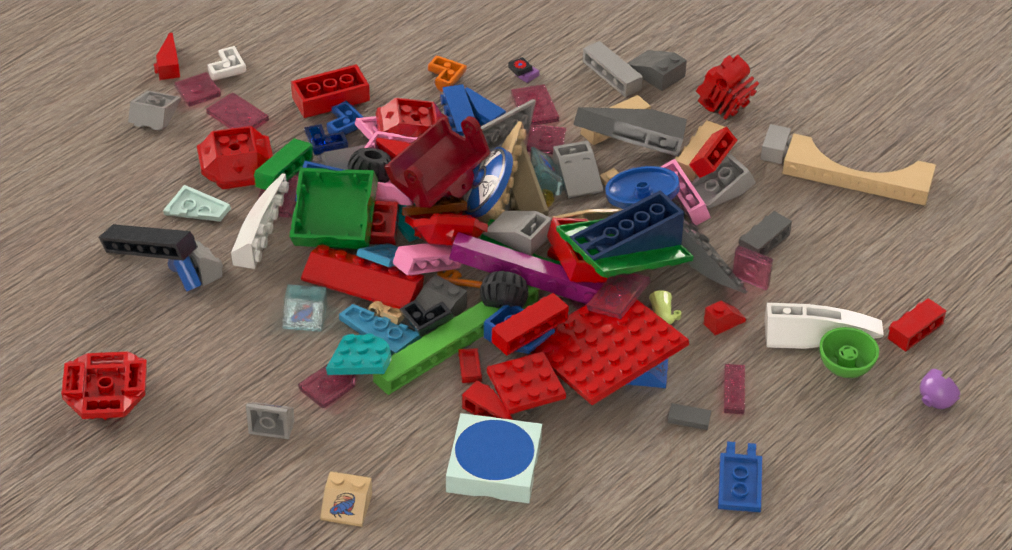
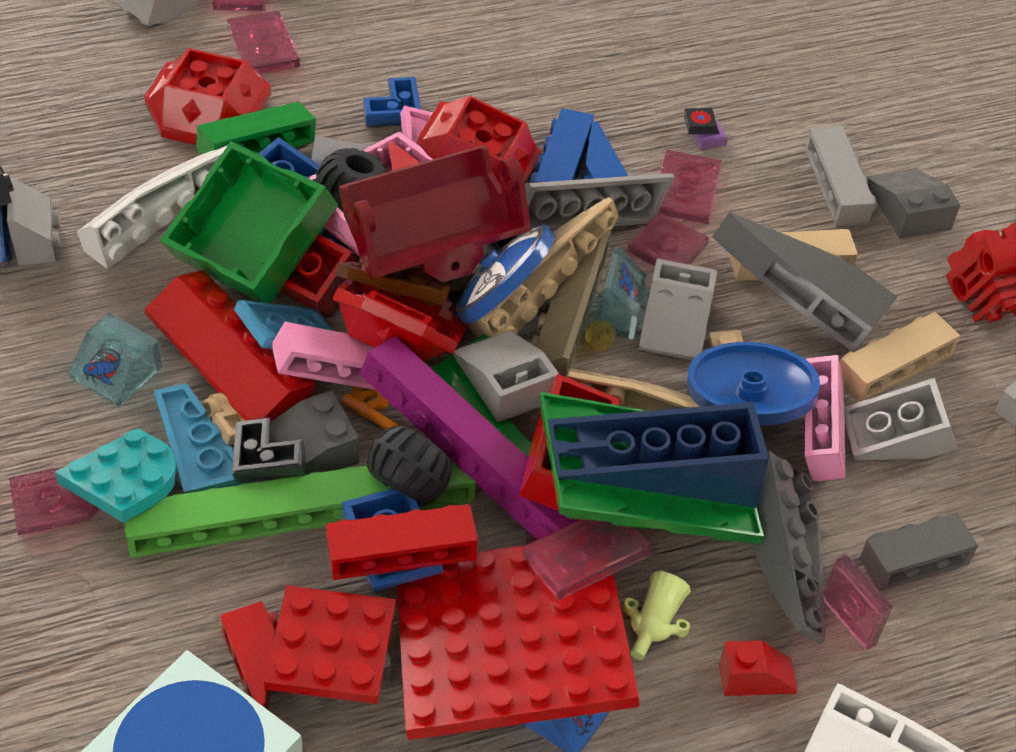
camera: 25 degrees right, 5 degrees up
(196, 205) = (102, 145): light aqua wing -> none
(323, 142) = (339, 123): clear blue brick -> none
(325, 90) = (402, 51): red brick -> none
(448, 71) = (592, 89): orange brick -> none
(469, 365) = (286, 564): red tile -> none
(713, 152) = (907, 369): red brick -> none

